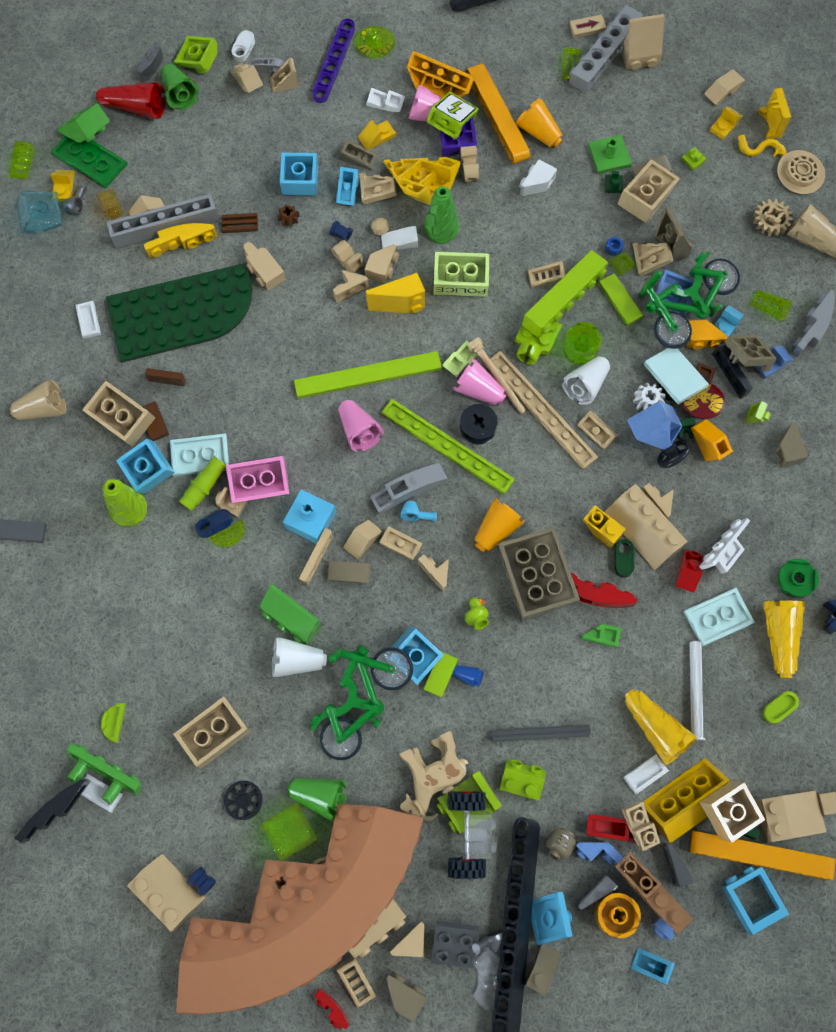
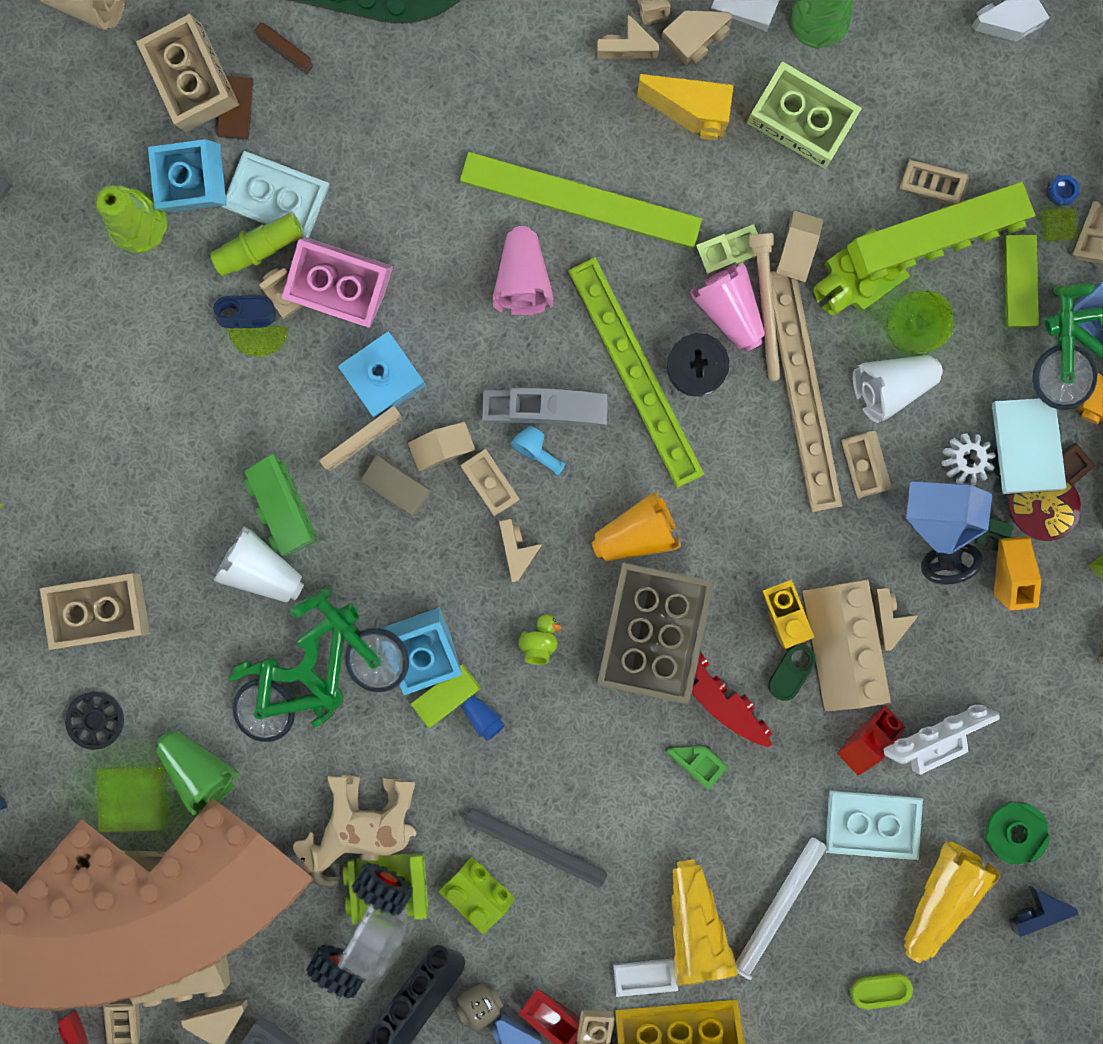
camera: 30 degrees right, 15 degrees up
(497, 338) = (799, 246): none -> tan slope

